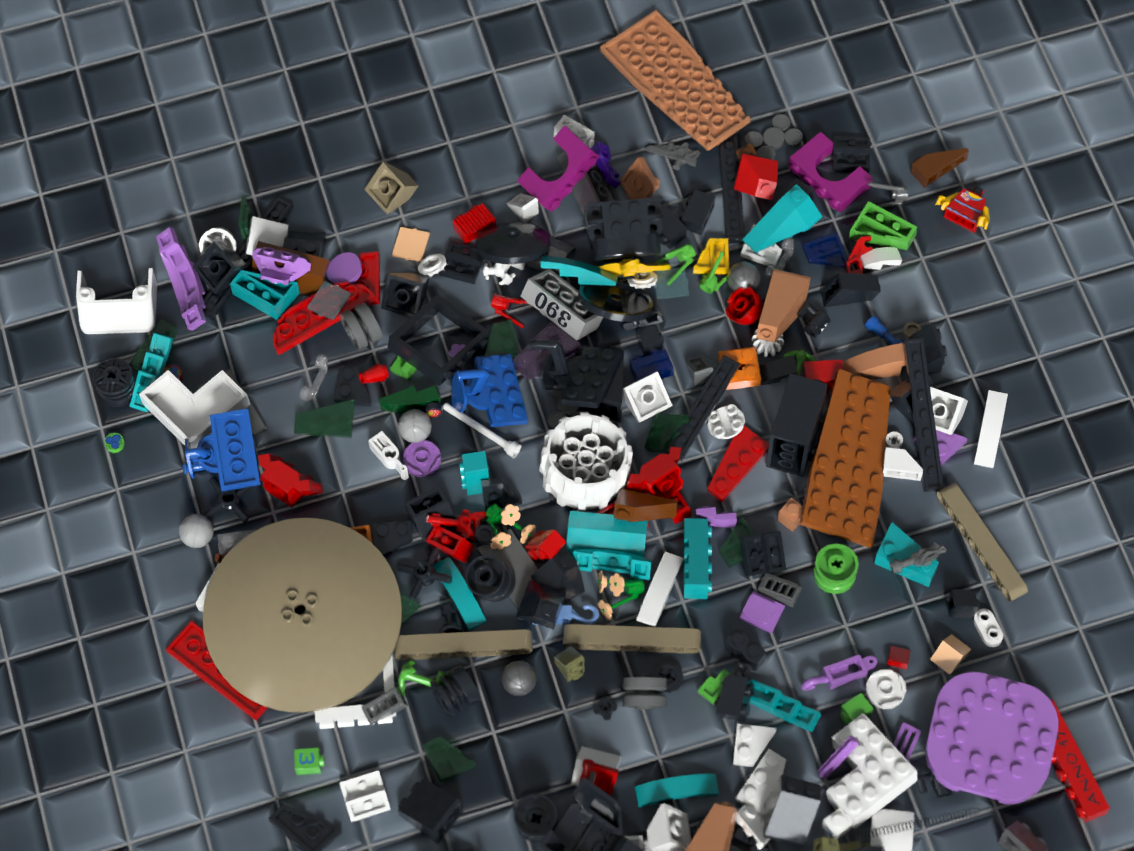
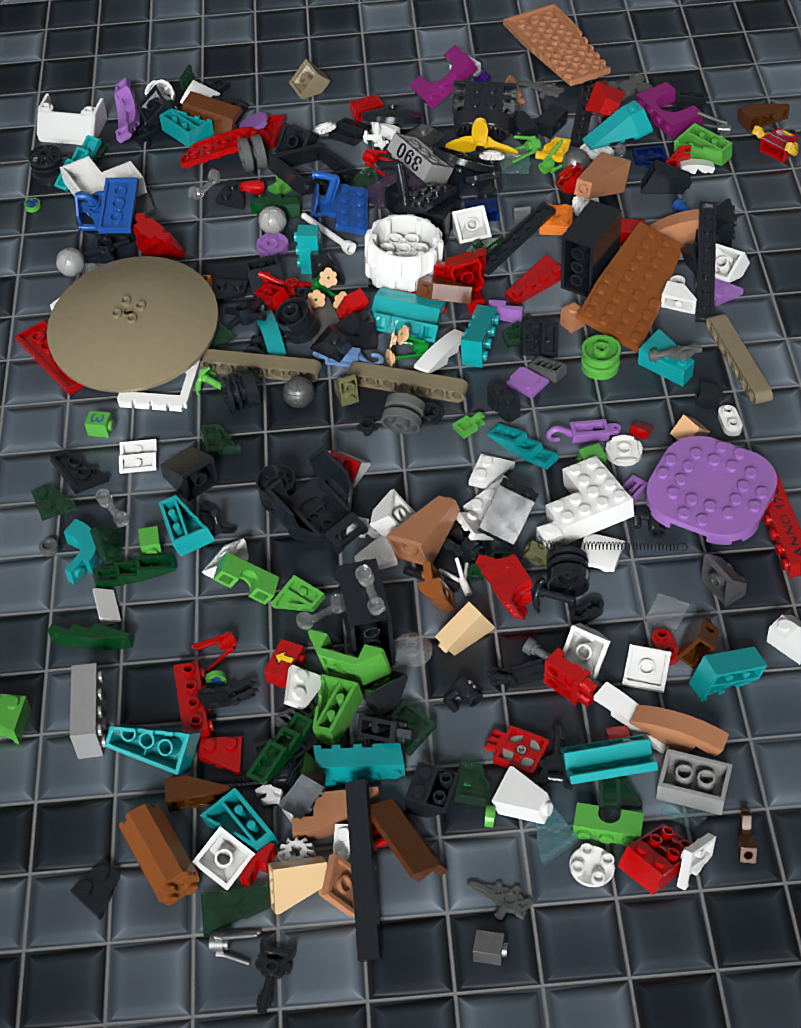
camera: 15 degrees right, 15 degrees down
(294, 265) = (212, 108): medium lavender piece -> none
(327, 421) = (204, 212): clear green wing -> none
(329, 300) = (230, 136): clear light blue piece -> none
(381, 700) = (183, 394): dark grey slope -> none
(387, 453) = (244, 236): white piece -> none
(411, 244) = (312, 117): light nougat piece -> none
(433, 410) = (292, 214): black tile -> none
(524, 206) = (411, 102): white slope -> none
(586, 273) = (441, 138): teal slope -> none
(675, 788) = (412, 489): teal slope -> none
(726, 422) = (534, 251): white dish -> none
(736, 694) = (485, 430): black hinge -> none
(817, 322) = (631, 198): black piece -> none
(838, 756) = (564, 482): medium lavender axle -> none
(990, 429) = (765, 284): white slope -> none

